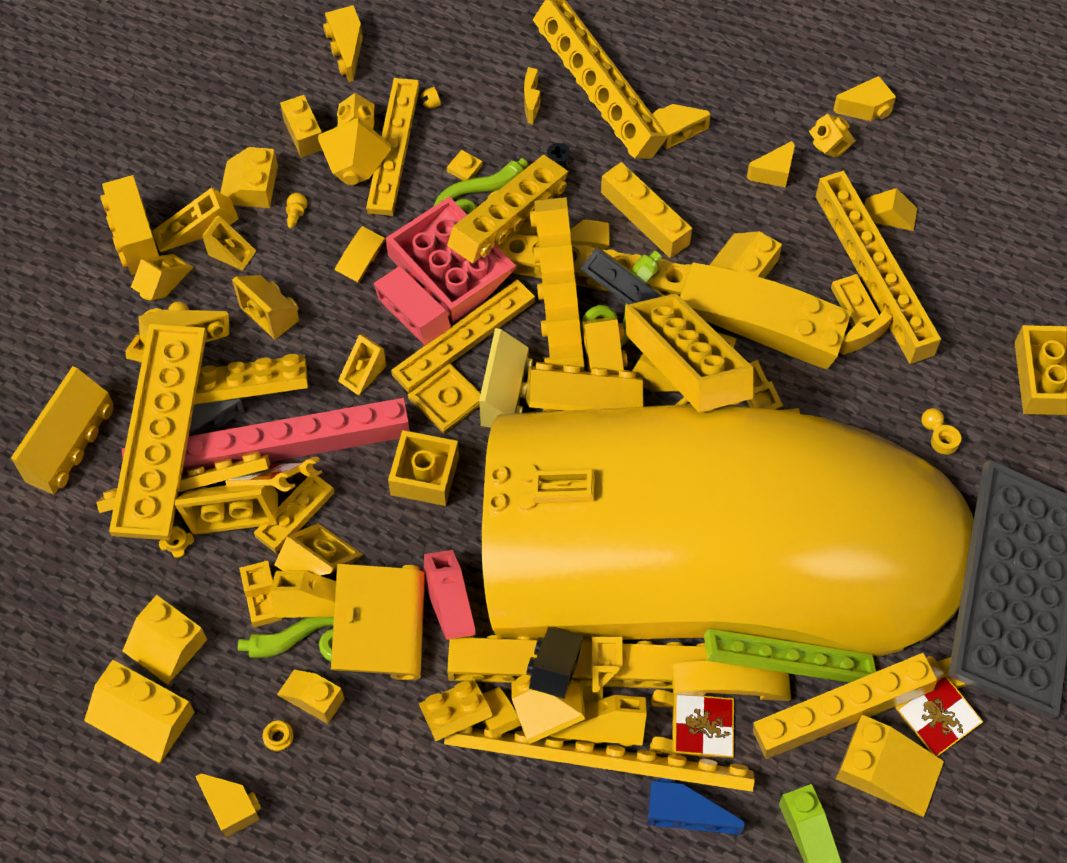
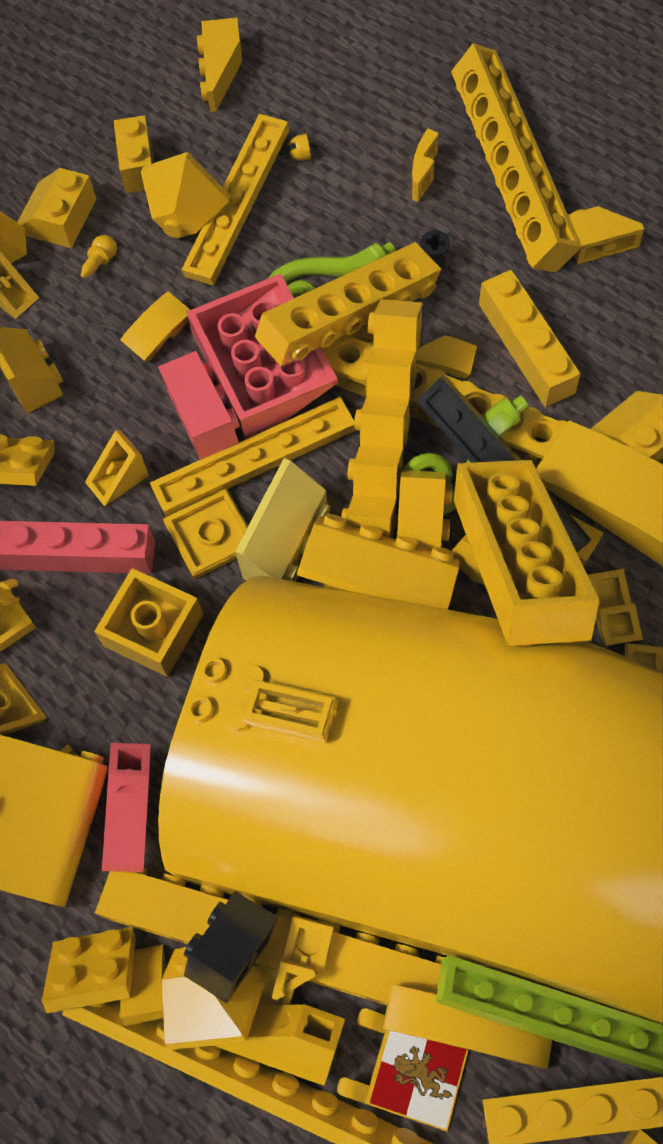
camera: 20 degrees right, 5 degrees up
(356, 107) = (206, 148): yellow brick -> none
(464, 166) = (318, 239): yellow plate -> none

